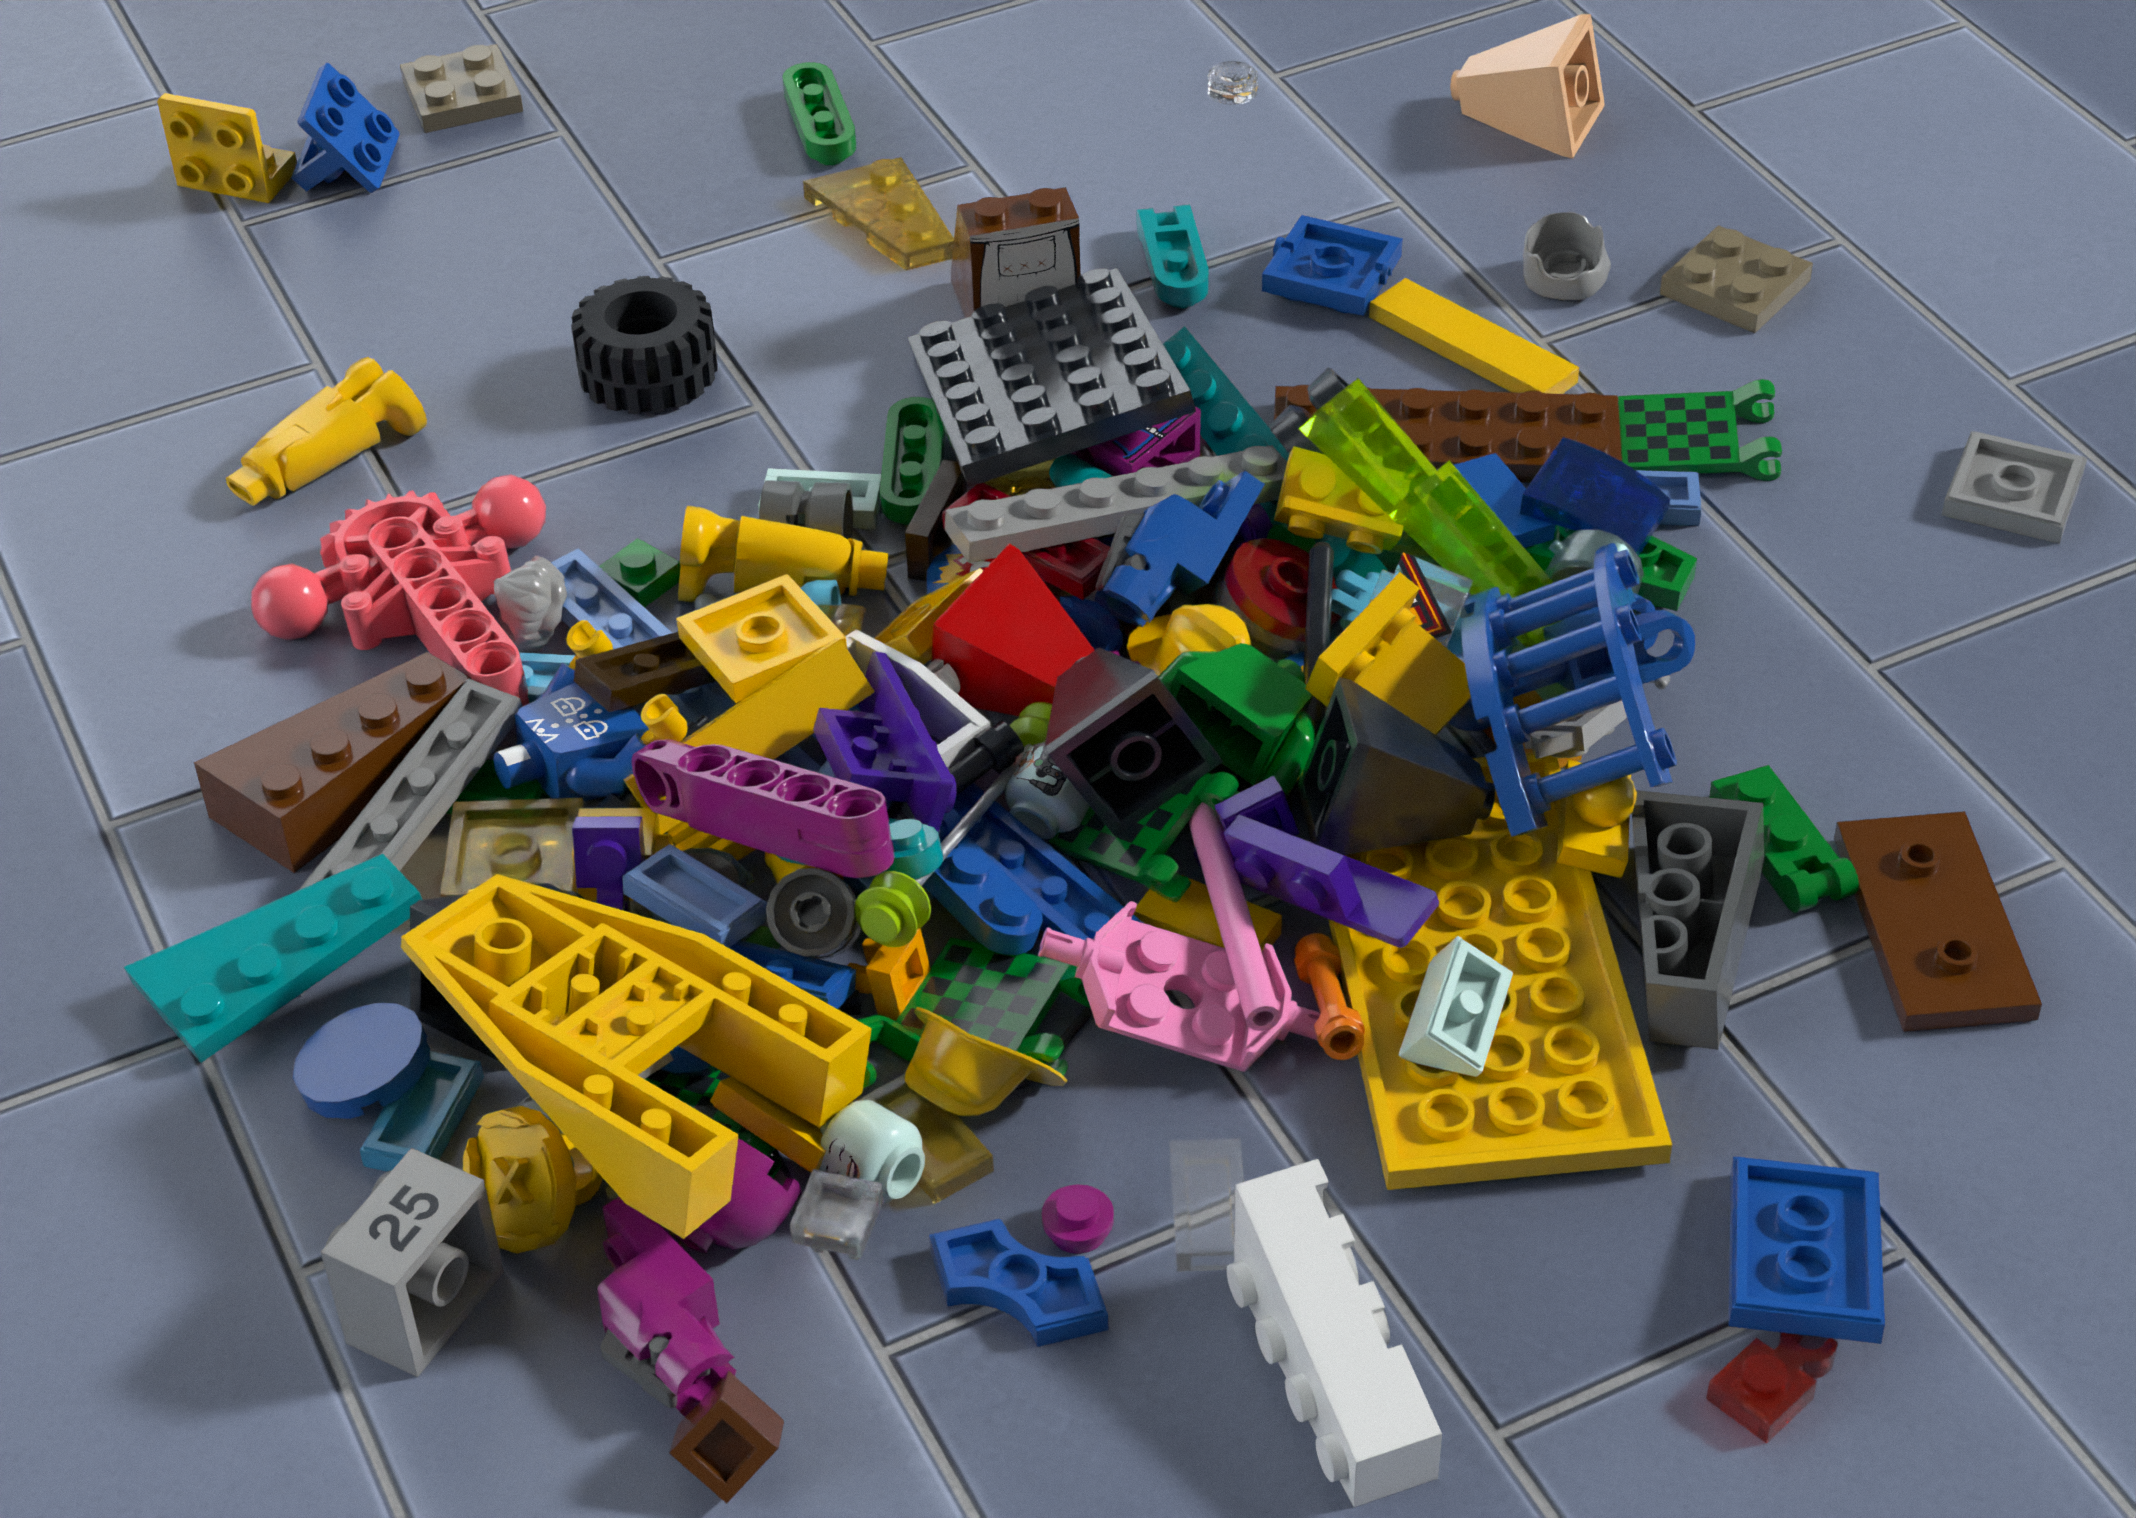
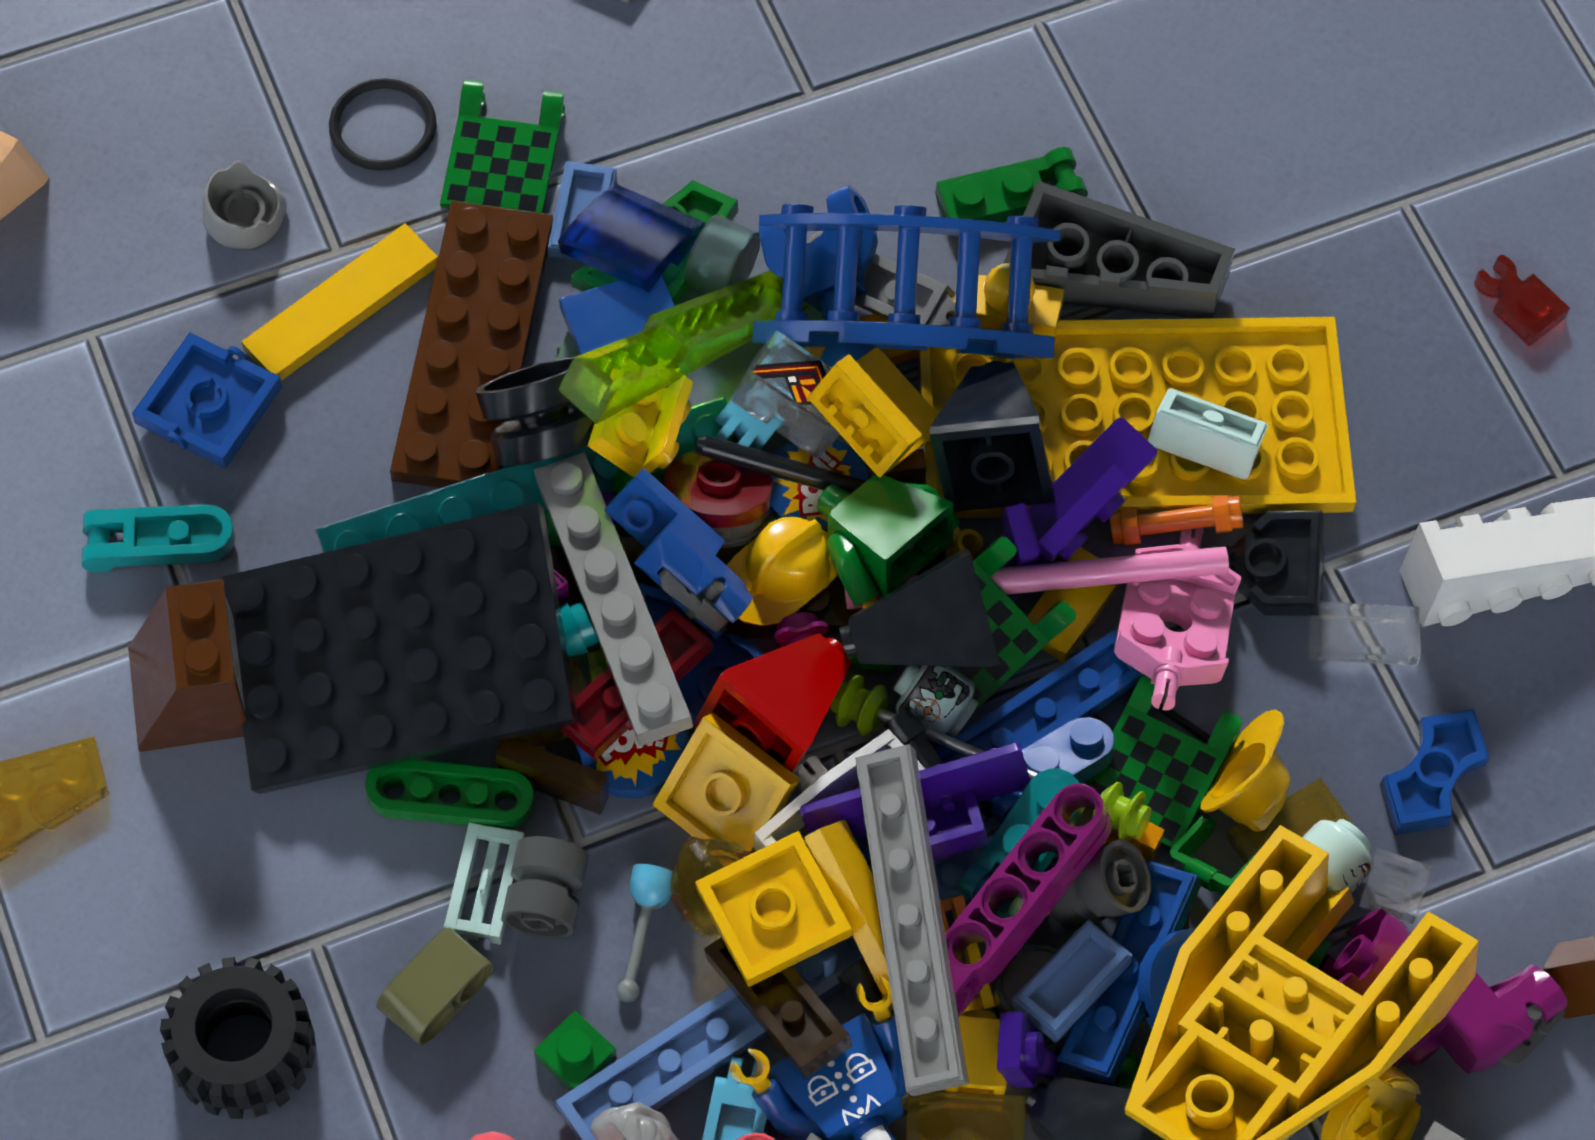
camera: 90 degrees left, 20 degrees up
(703, 466) = (435, 986): none -> olive beam
(738, 716) = (911, 921): none -> light grey tile
(767, 550) = (594, 970): yellow piece -> none
(1077, 1218) = (1380, 722): magenta plate -> none
(1288, 1108) = (1282, 563): none -> black plate
(1701, 382) = (415, 153): none -> black tyre
(1736, 278) = (283, 80): dark tan plate -> none
(1805, 1250) = (1419, 257): blue tile -> none
(1937, 922) = (1101, 111): reddish brown plate -> none

